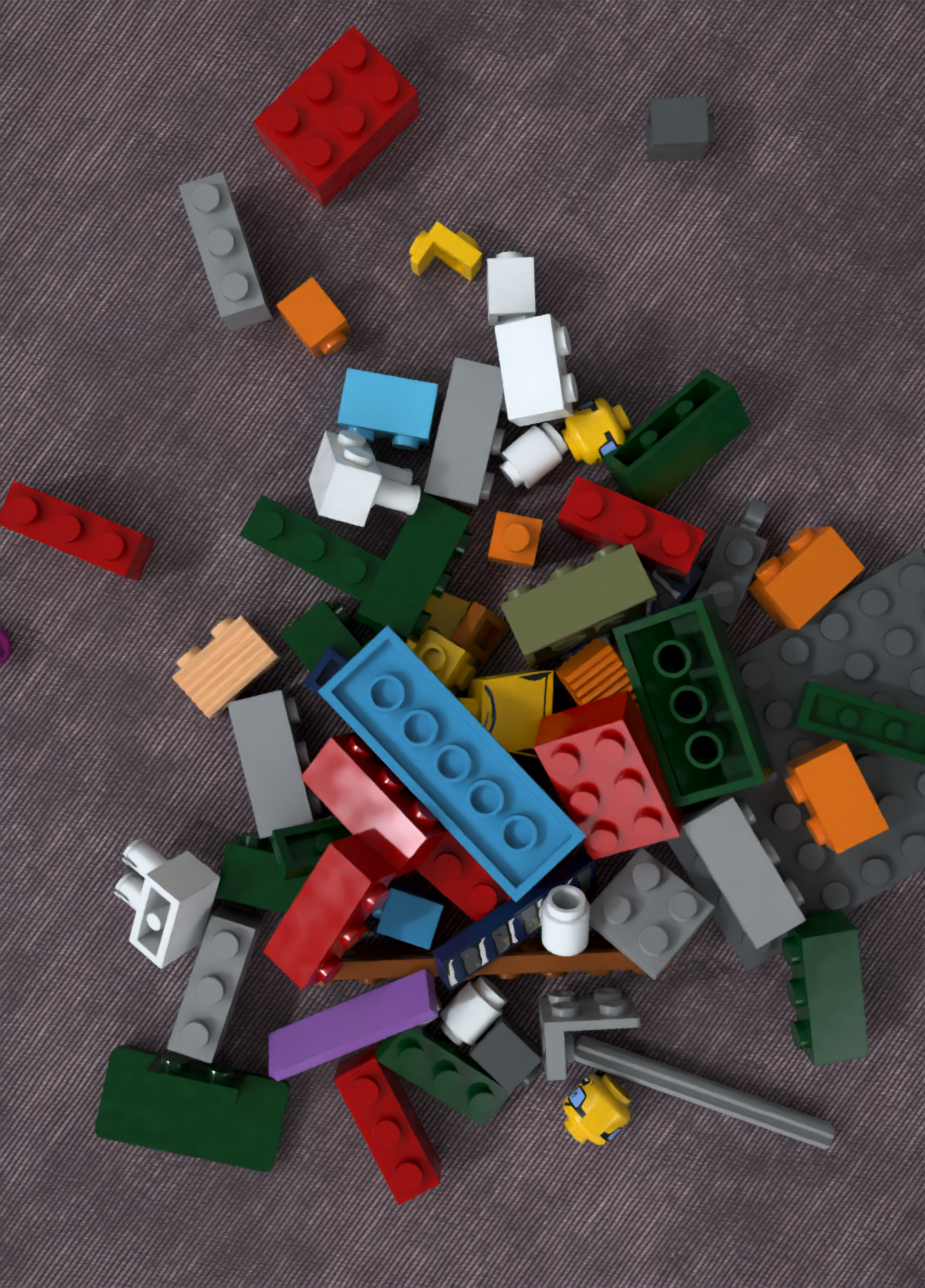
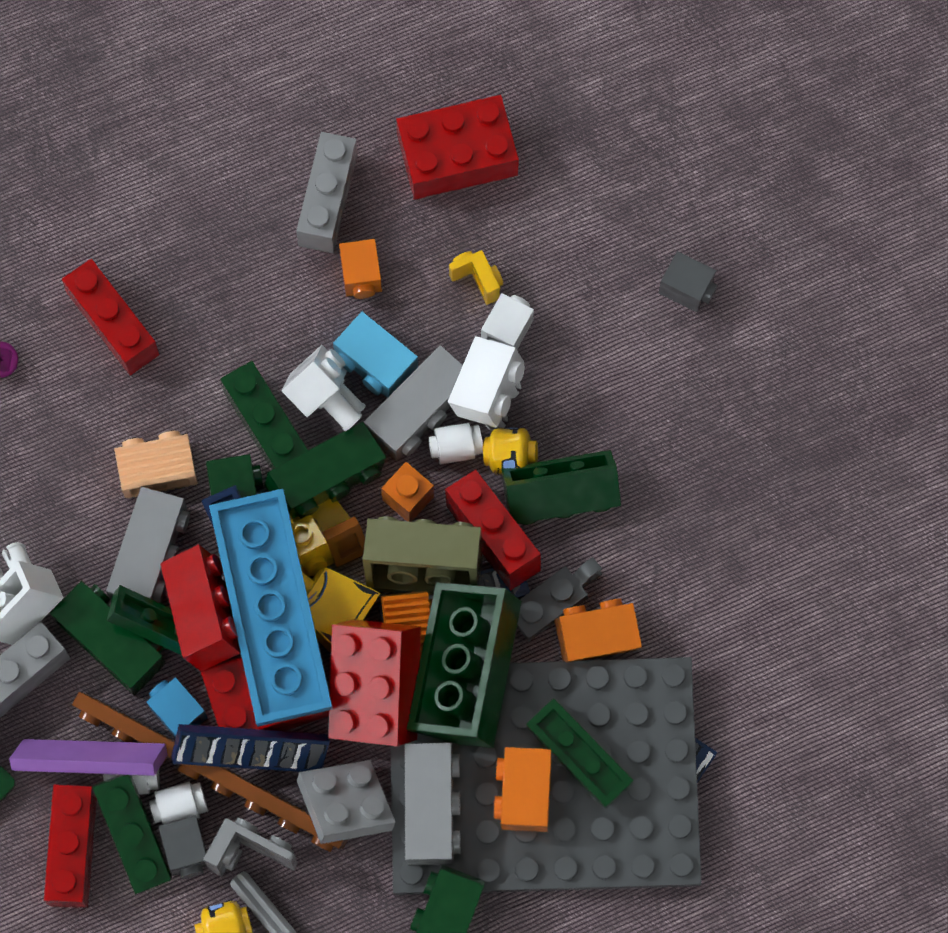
camera: 30 degrees right, 15 degrees down
(330, 912) = (125, 657): red brick -> none
(565, 921) = (283, 766): white brick -> none

